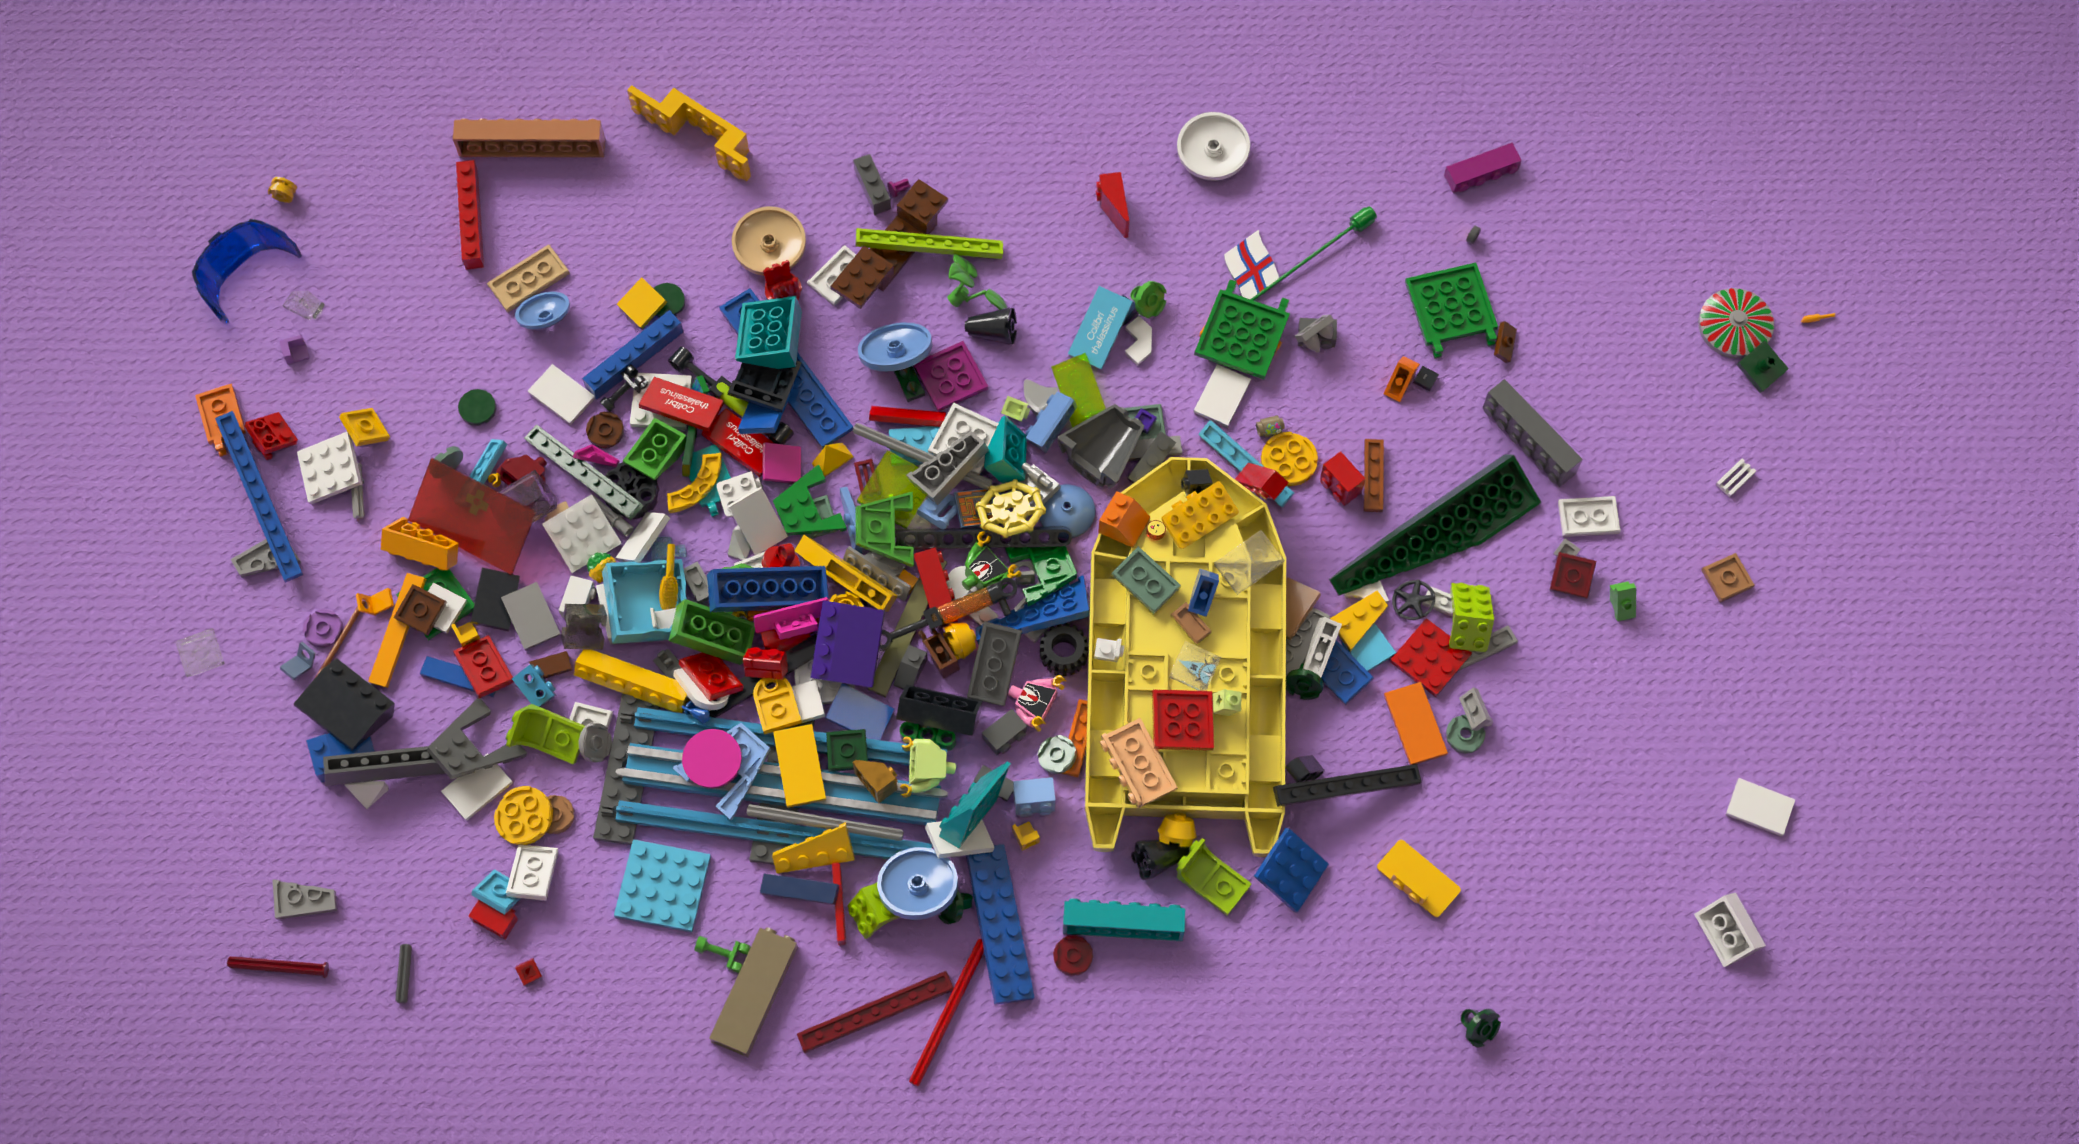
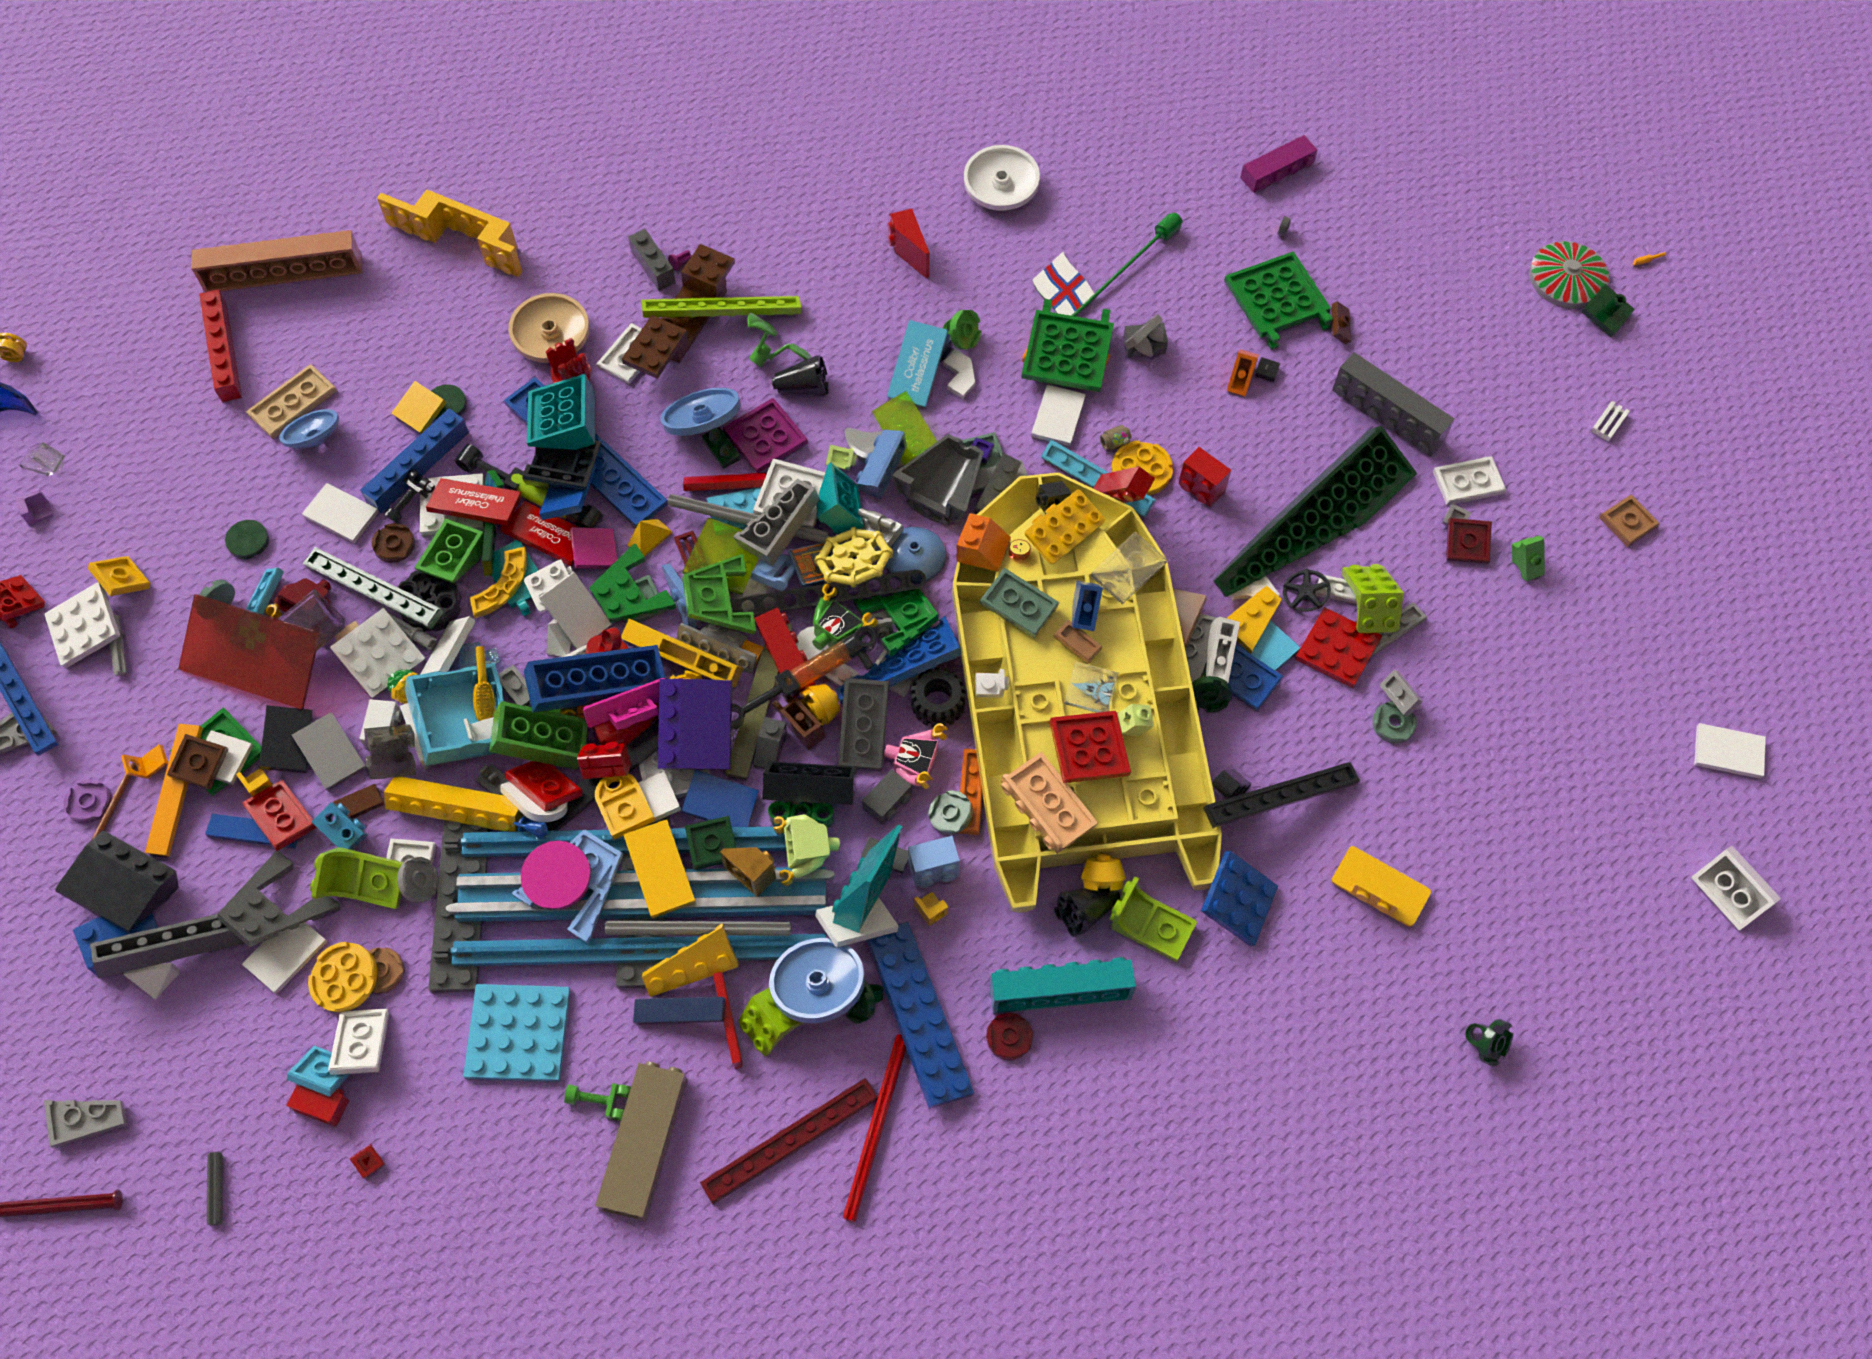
camera: 10 degrees left, 5 degrees down
(300, 663) = (61, 845): sand blue bracket -> none
(419, 544) = (191, 691): light orange wedge -> none
(596, 455) = (384, 568): dark pink tile -> none
(1374, 475) = (1238, 483): dark orange plate -> none
(1415, 723) = (1339, 719): orange tile -> none

